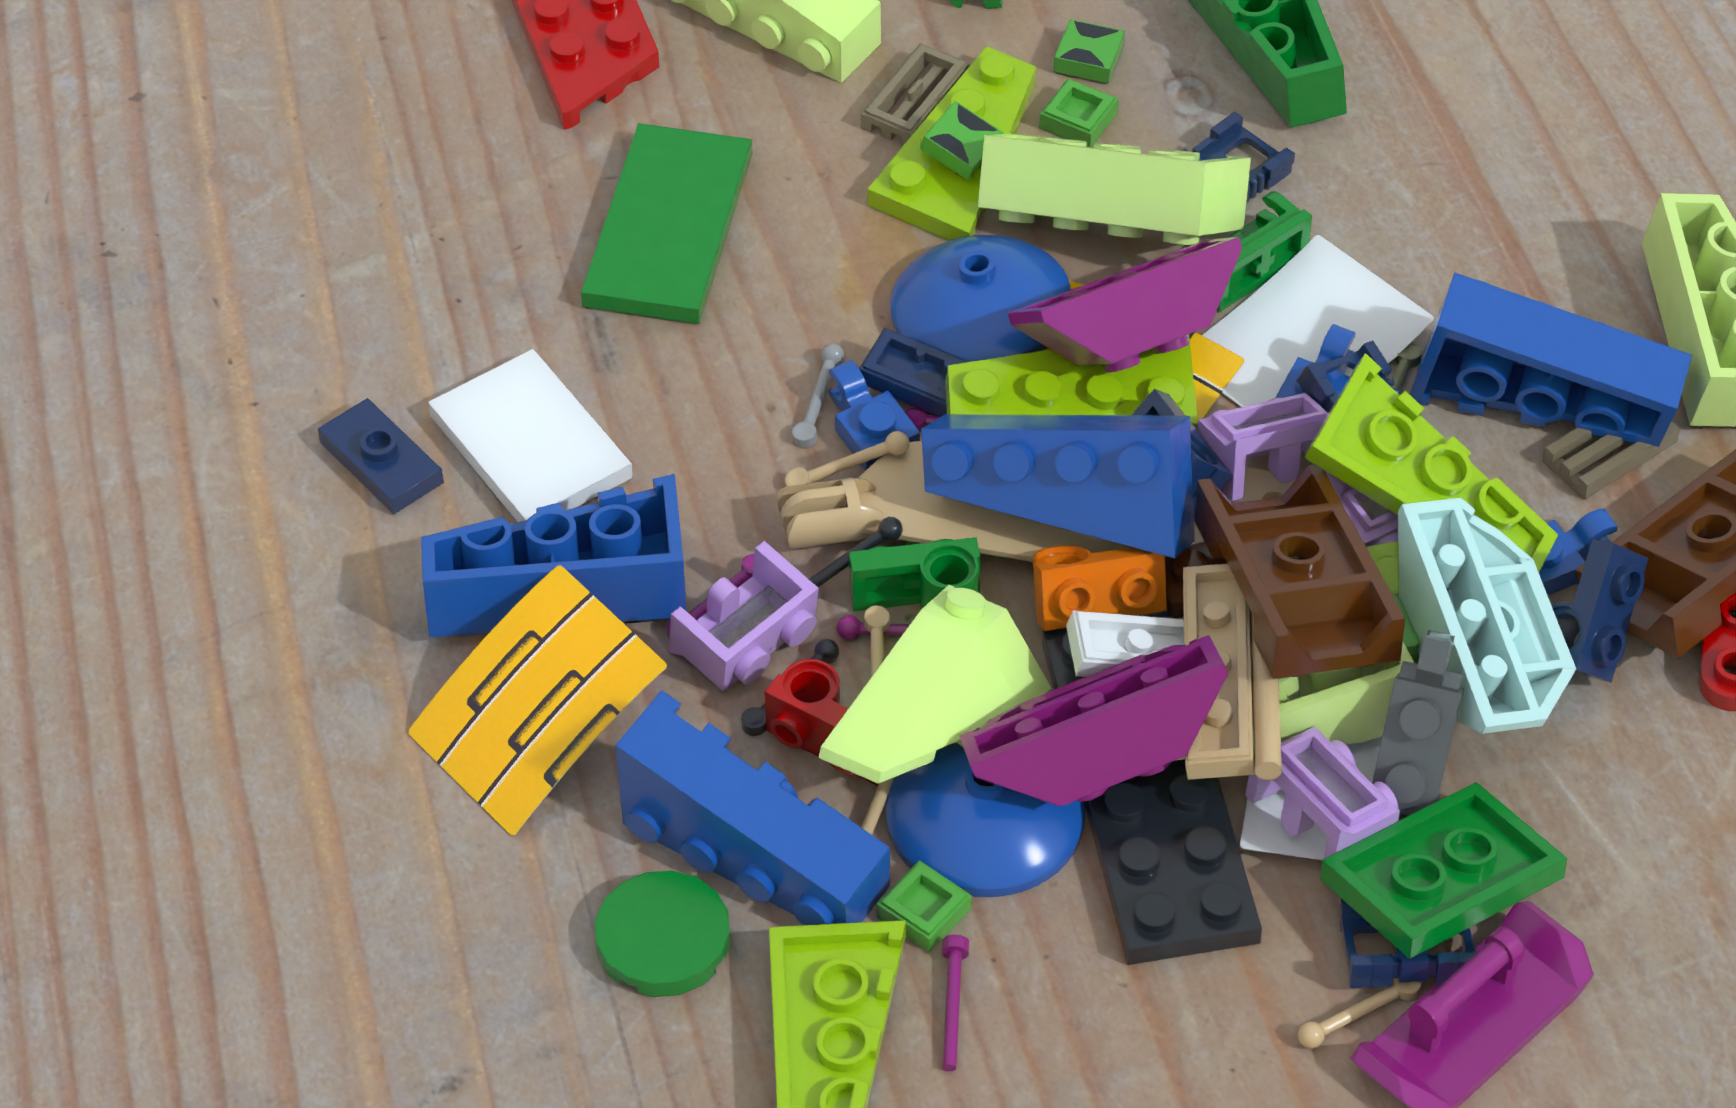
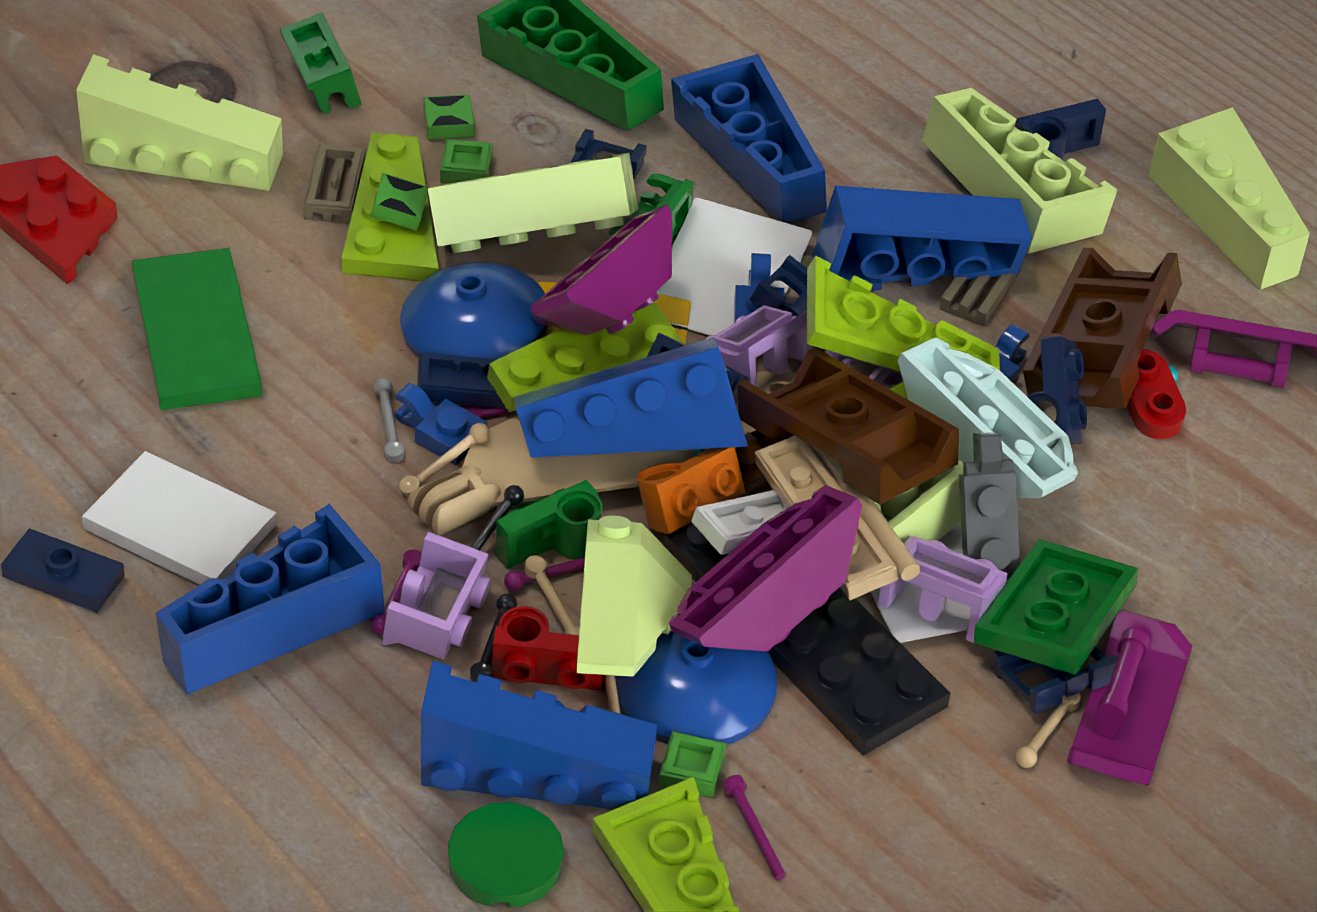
camera: 30 degrees left, 5 degrees down
(534, 697) = (310, 709): yellow sticker -> none
(1423, 168) = (753, 135): none -> blue wedge

